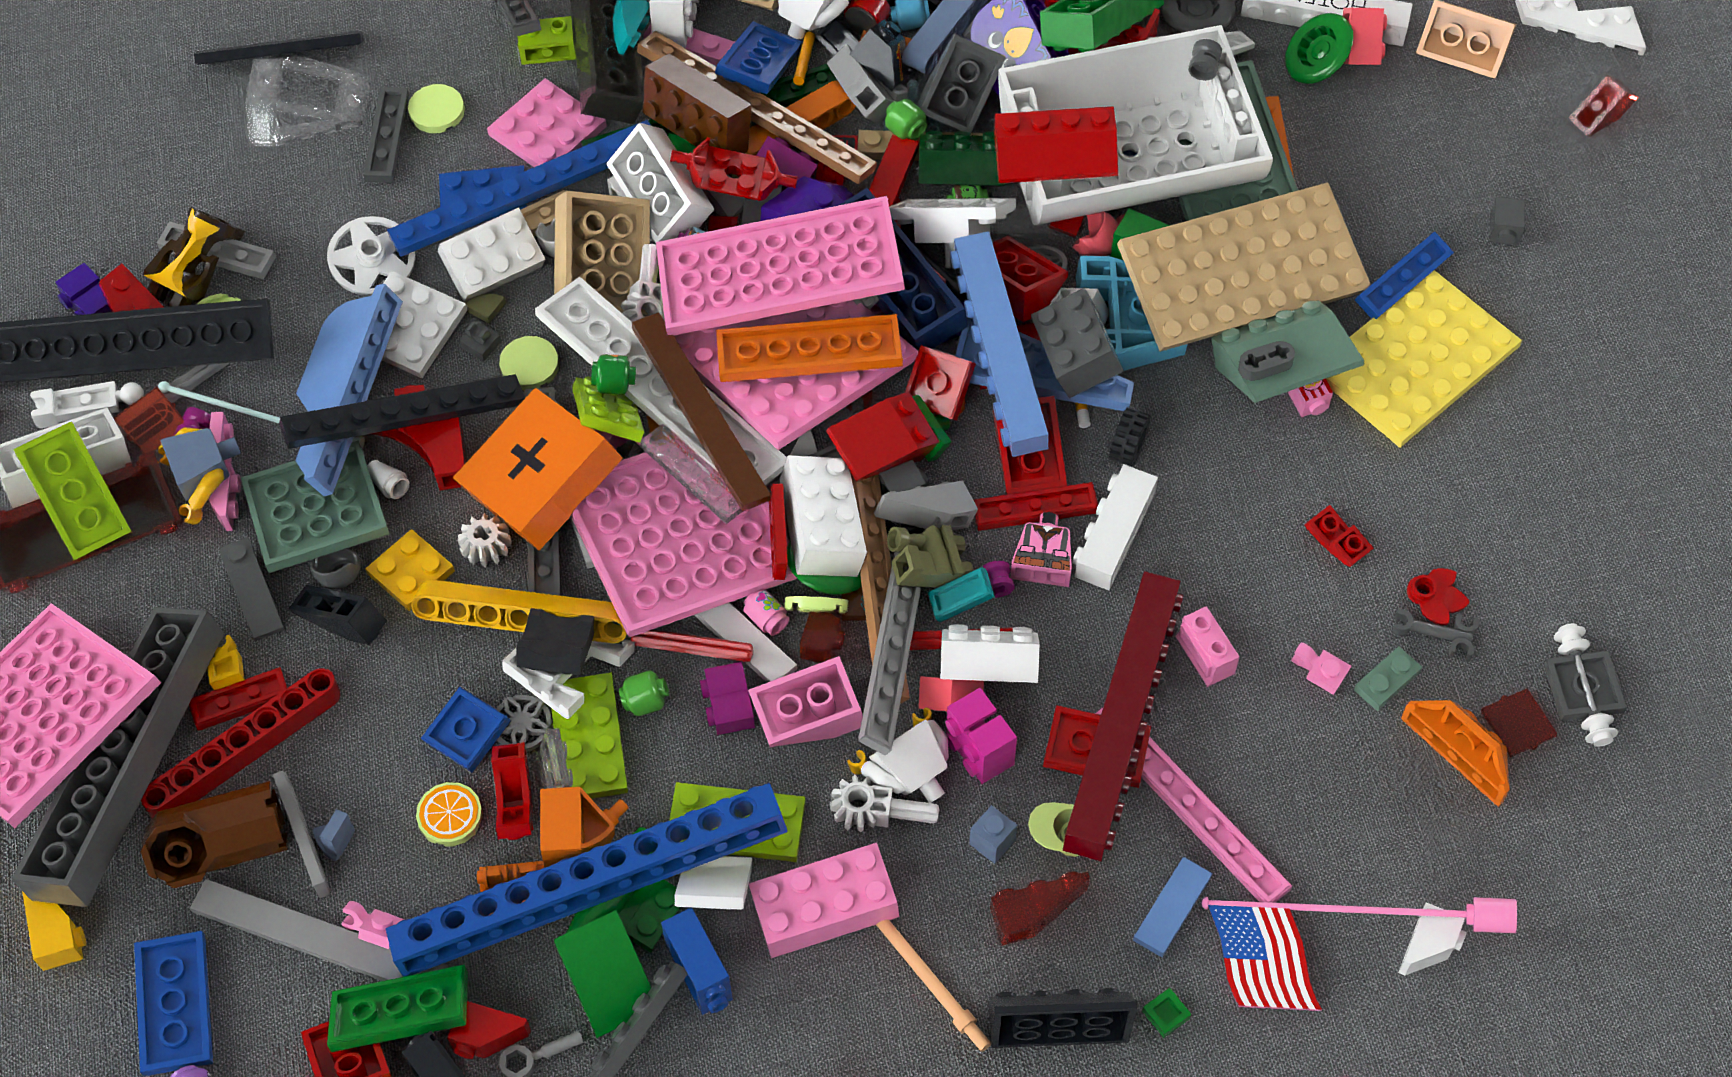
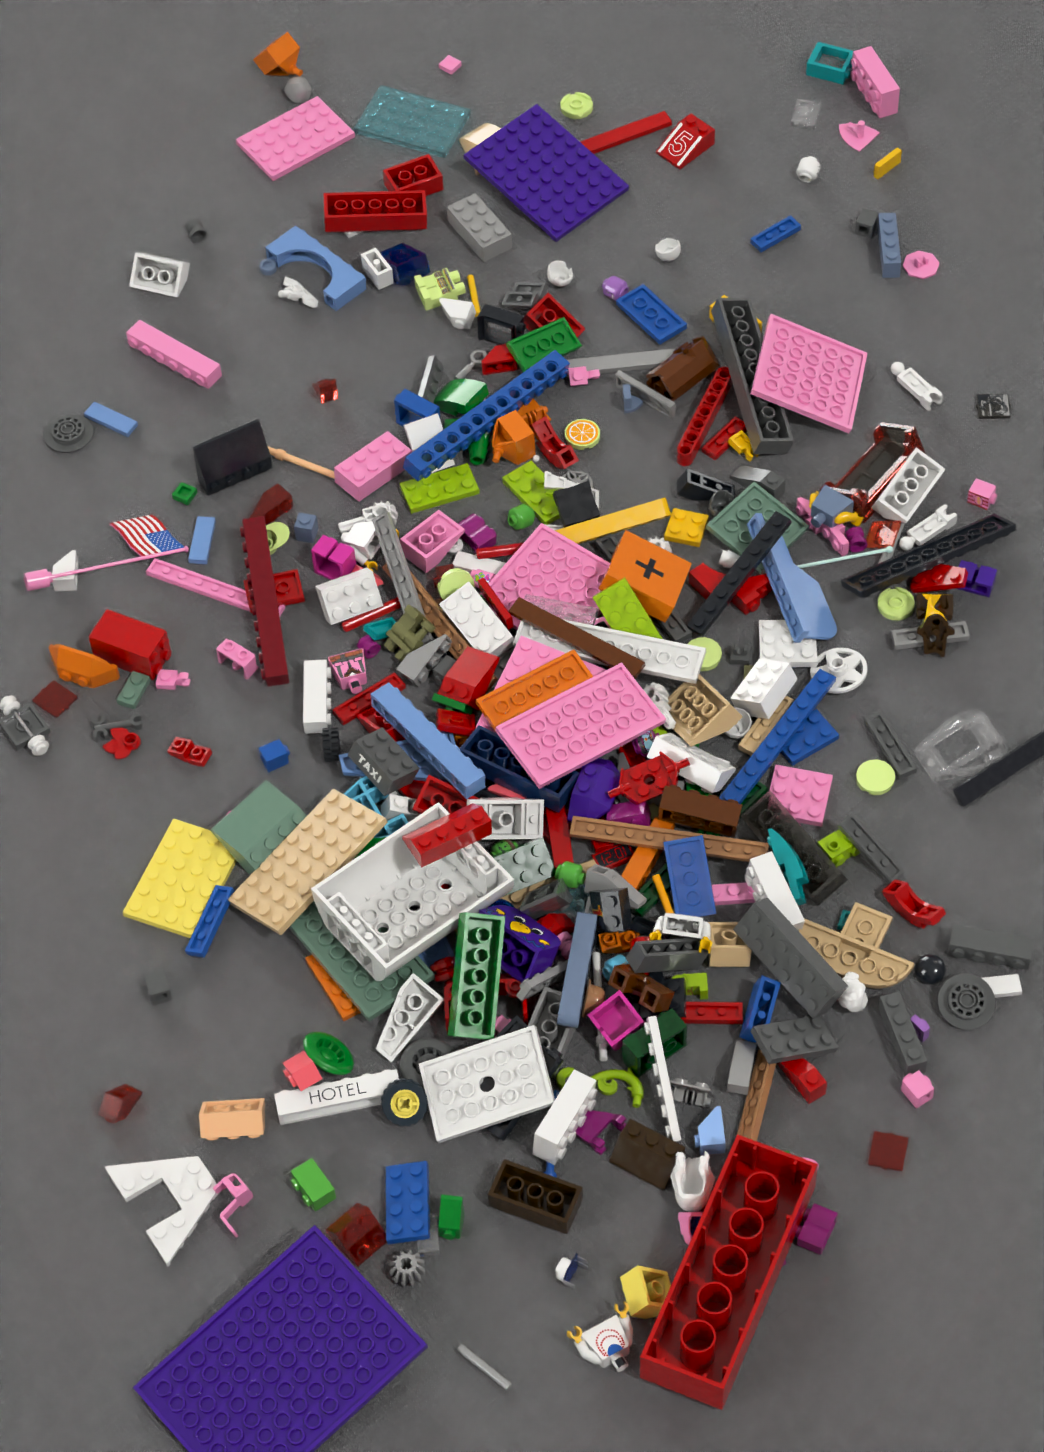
camera: 155 degrees right, 5 degrees down
(72, 490) = (880, 465): lime plate -> none
(465, 729) = (599, 467): blue tile -> none
(553, 761) = (534, 457): clear plate -> none
(612, 374) = (633, 624): green head -> none
(1205, 59) = (381, 925): dark grey wheel -> none
(1217, 469) = (274, 755): none -> blue brick
(1266, 360) = (265, 798): dark grey beam -> none
(1372, 732) = (130, 644): none -> red brick

